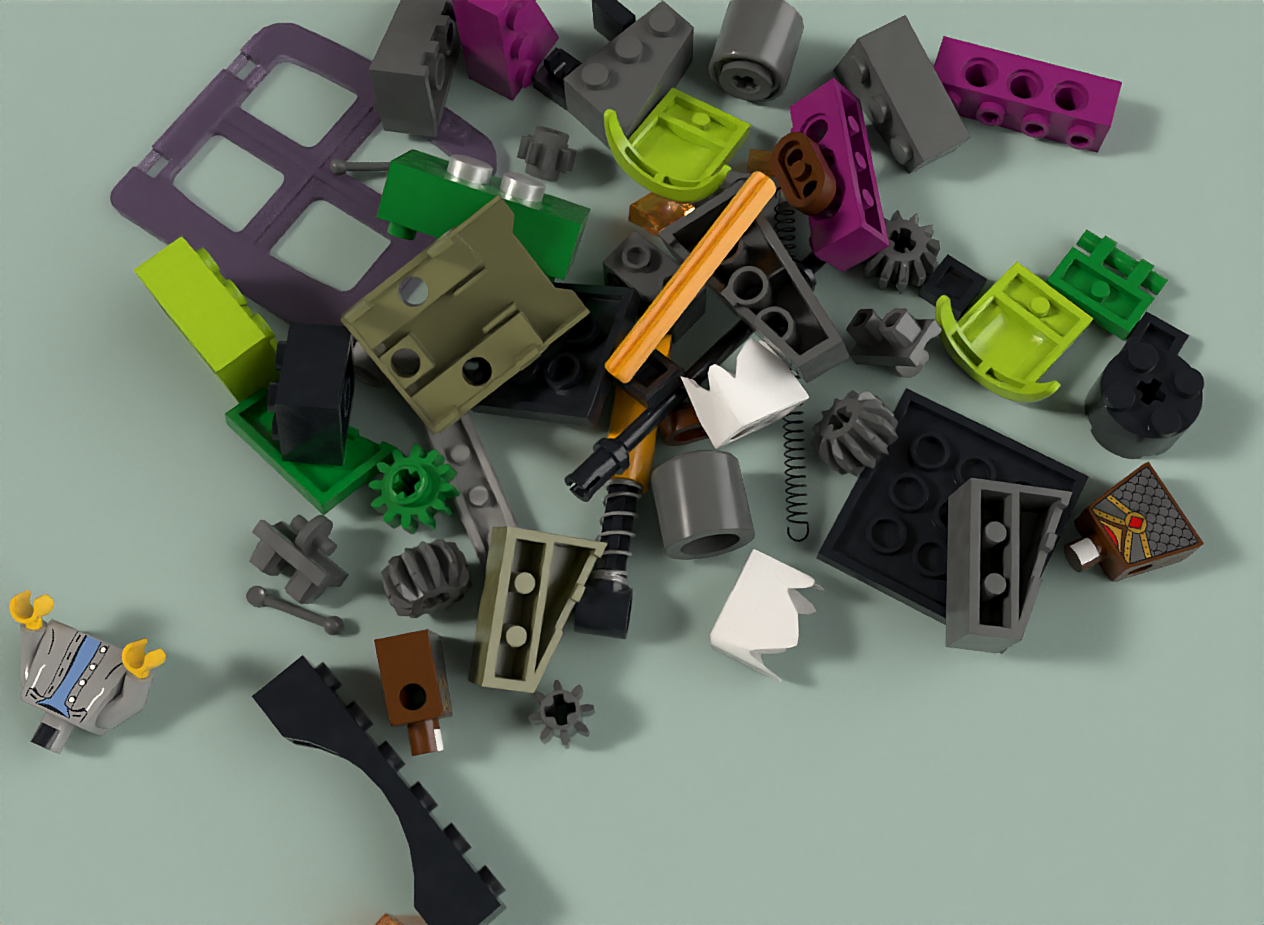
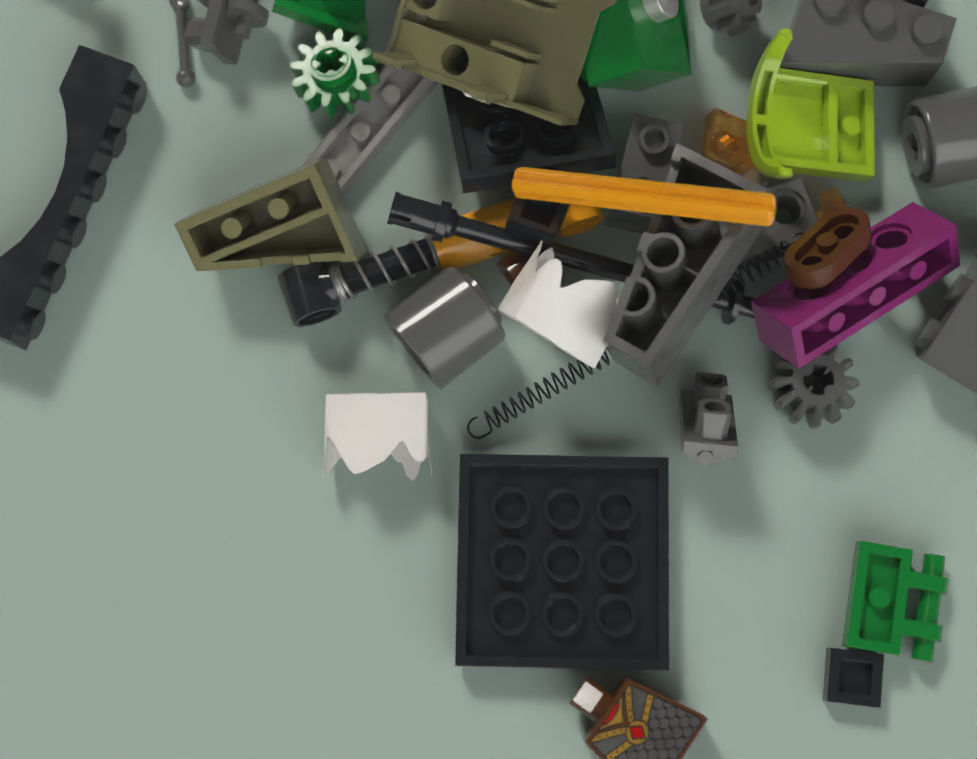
camera: 60 degrees right, 10 degrees up
(405, 665) = (158, 171): reddish brown torso -> none
(426, 578) = (255, 127): dark grey gear -> none
(549, 708) = (187, 314): dark grey gear -> none
(854, 433) = (591, 430): dark grey gear -> none
(954, 281) = (808, 454): black tile -> none
(996, 560) = (523, 615): dark grey wedge -> none
(1013, 335) = (785, 534): lime piece -> none
(1143, 401) = (807, 696): black brick -> none

